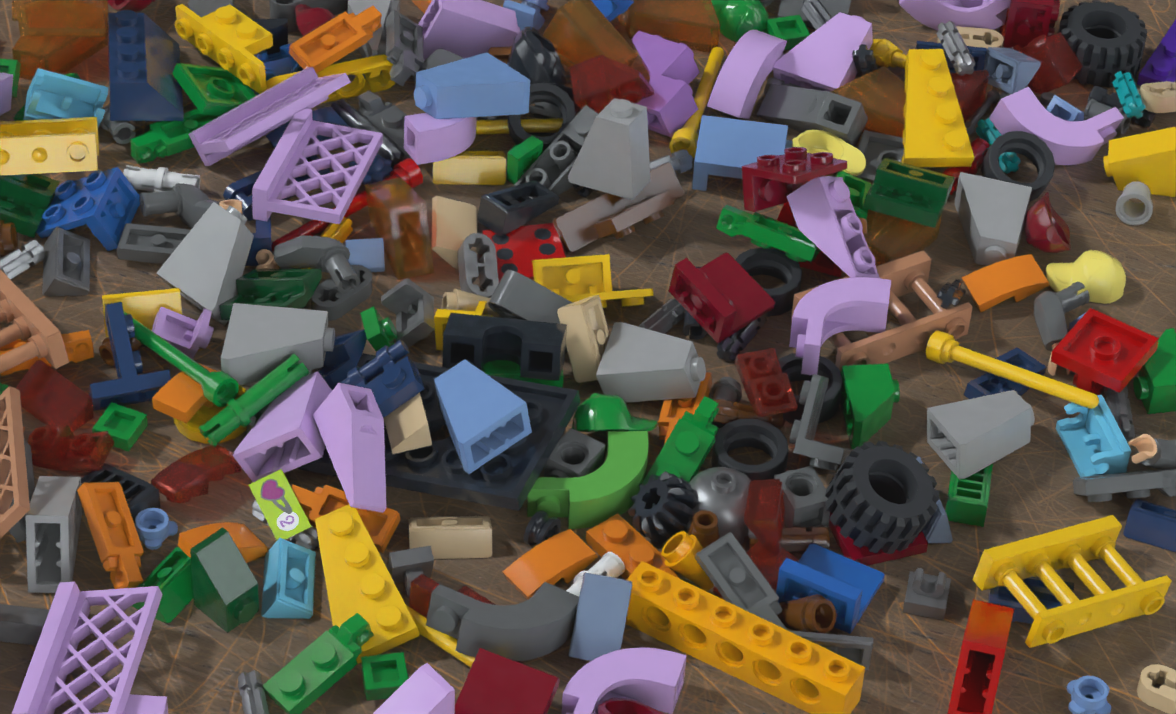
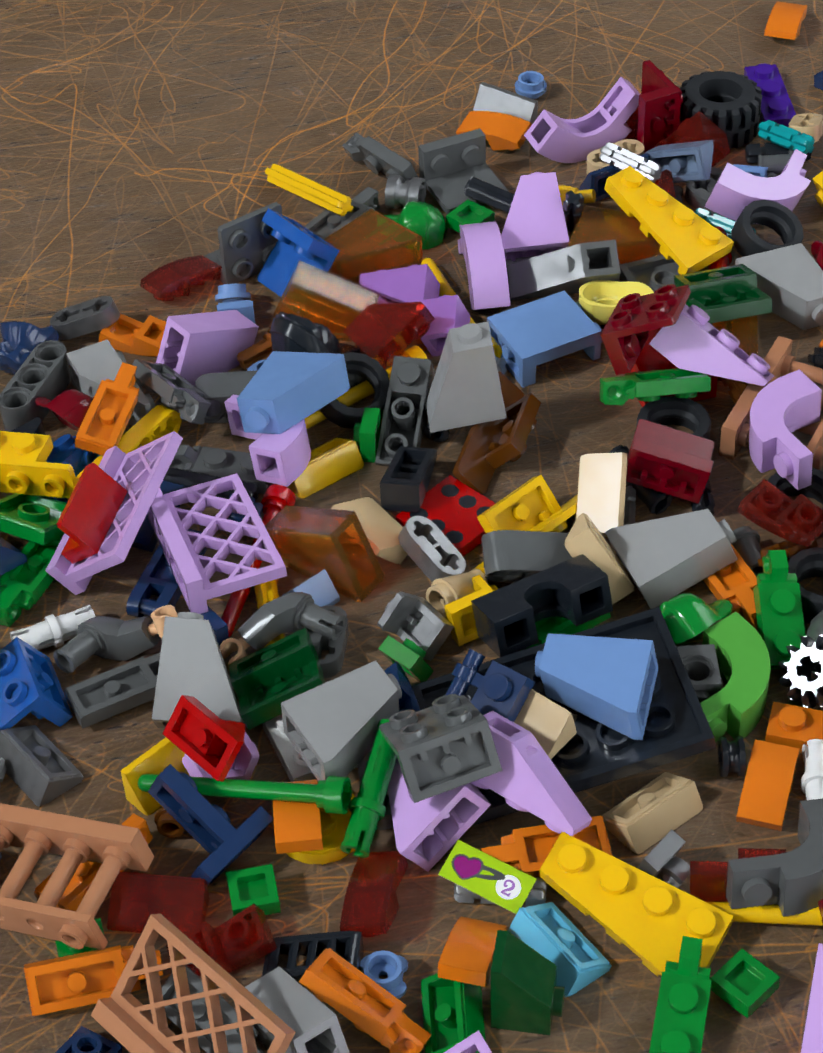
camera: 30 degrees left, 0 degrees up
(170, 306) = (205, 736): none -> red slope
(240, 101) = (90, 513): none -> red panel
(301, 389) = (441, 746): none -> dark grey bracket
(639, 291) = (602, 489): none -> slope

